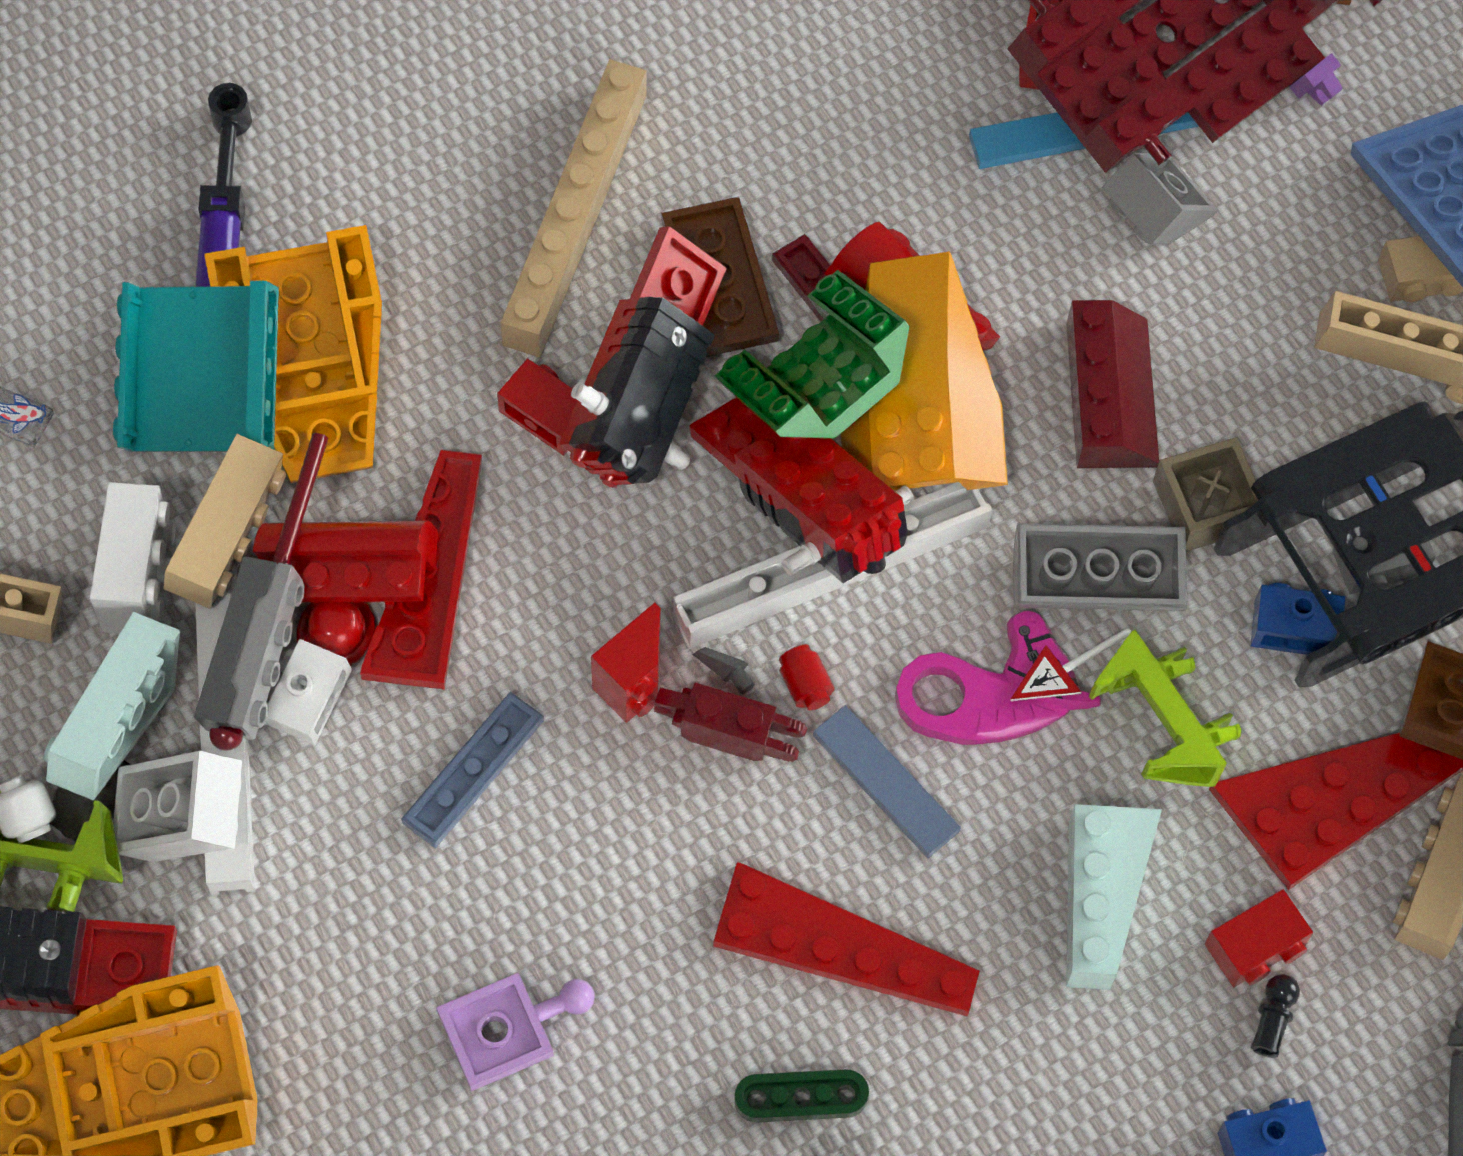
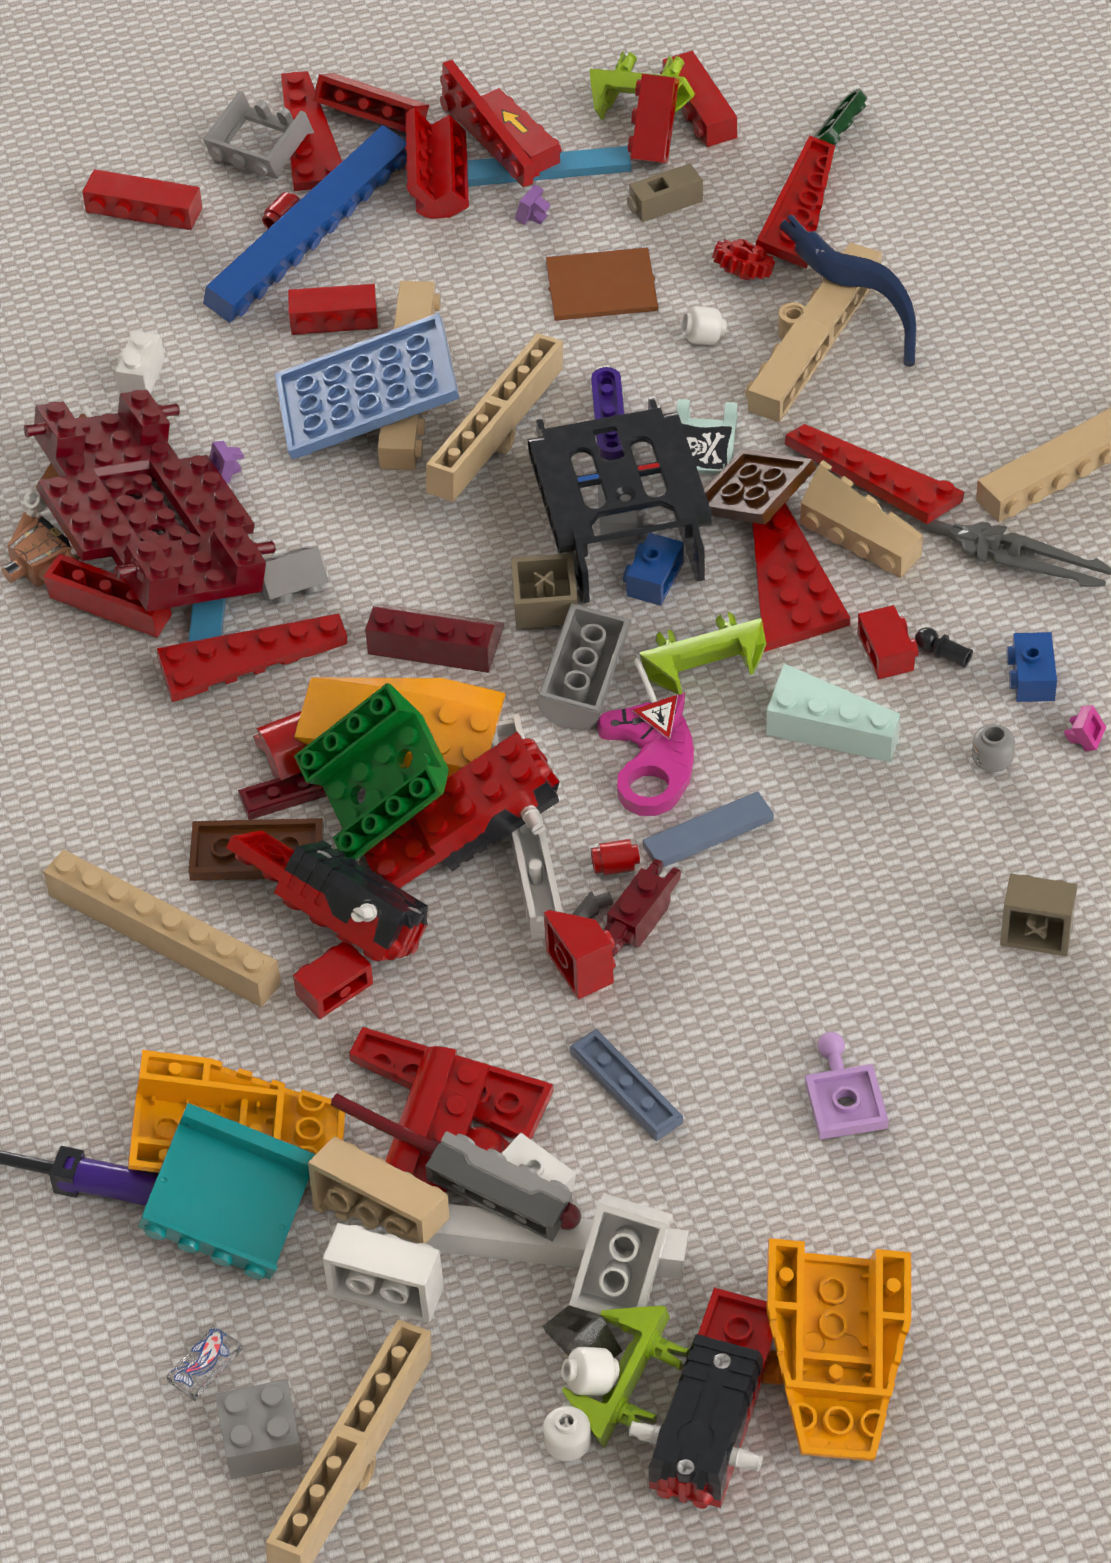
camera: 70 degrees left, 15 degrees down
(115, 707) = (519, 1292): light aqua wedge -> none
(816, 937) = (816, 898): red wing -> none
(820, 1087) = (940, 914): dark green plate -> none
(995, 161) = (198, 664): none -> red wing
(1105, 1110) = (993, 748): none -> light grey head

